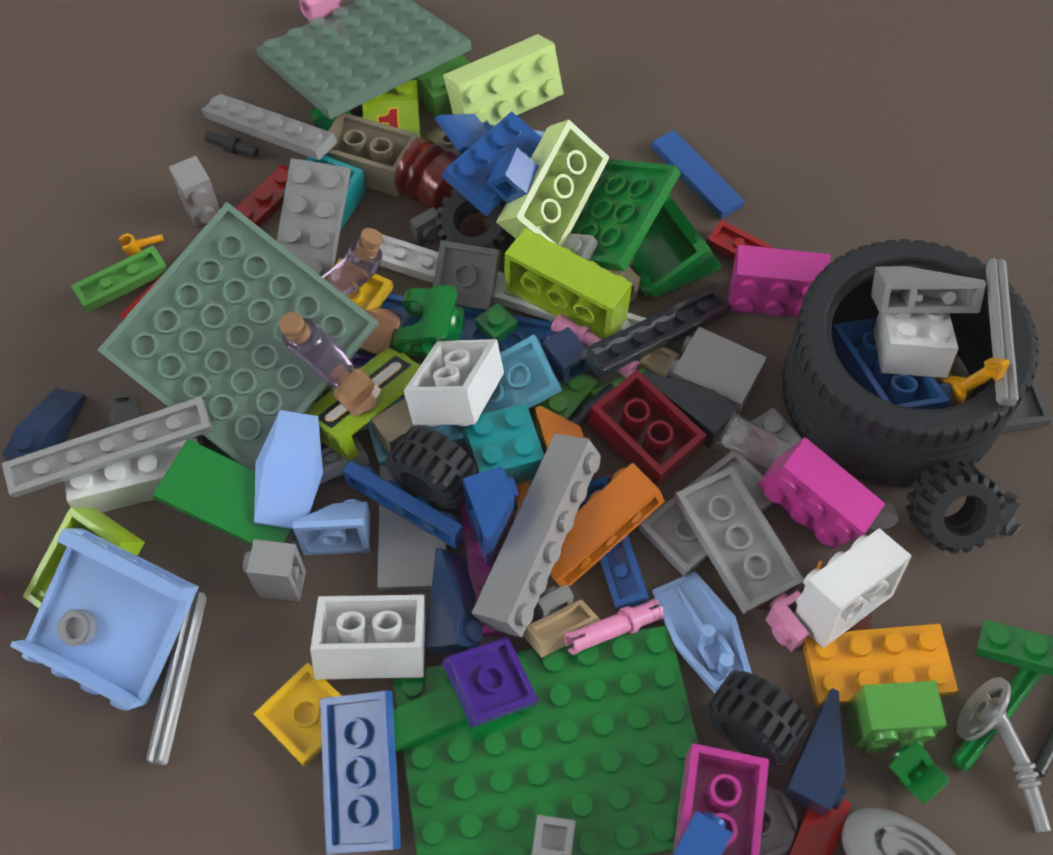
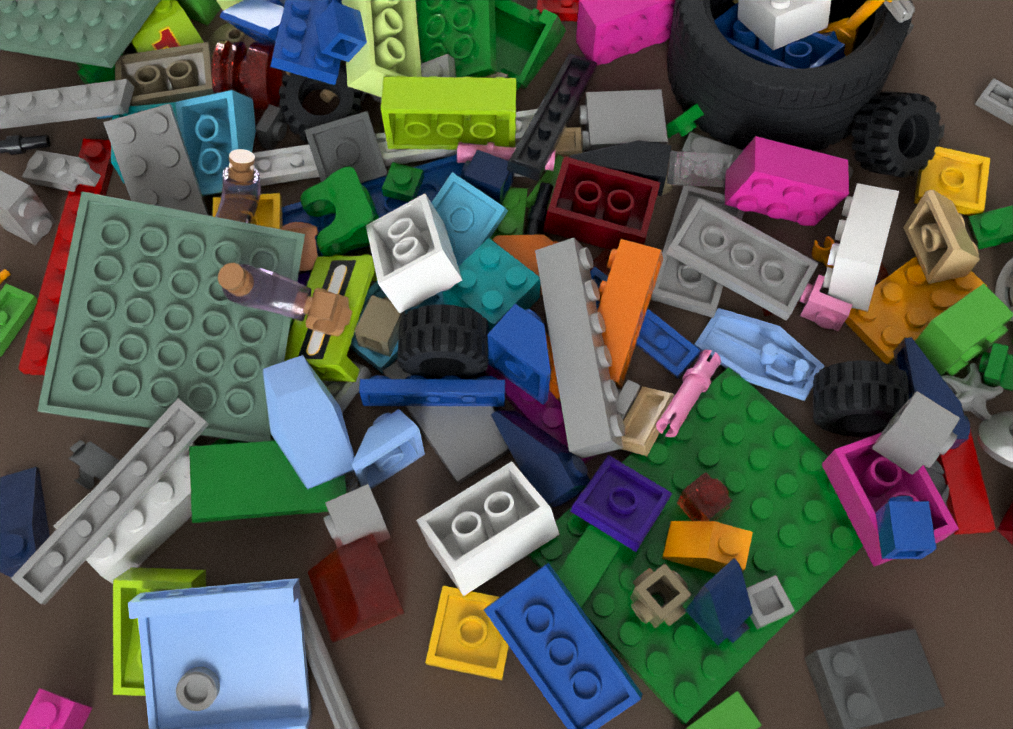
camera: 30 degrees left, 5 degrees up
(244, 624) = (354, 588): none -> clear red slope
(246, 180) = (59, 171): none -> light grey hinge
(376, 204) = (211, 130): none -> medium azure slope
(464, 762) = (665, 584): none -> dark tan brick
(506, 812) = (723, 605): none -> dark blue slope
(536, 762) = (706, 544): none -> light orange slope
(560, 722) = (705, 499): none -> clear red brick
(763, 769) = (917, 434): none -> light grey brick
(771, 396) = (685, 122): none -> green plate
(873, 777) = (972, 392): none -> light grey animal
(933, 622) = (940, 239): none -> tan slope
(992, 579) = (958, 177): none -> yellow plate

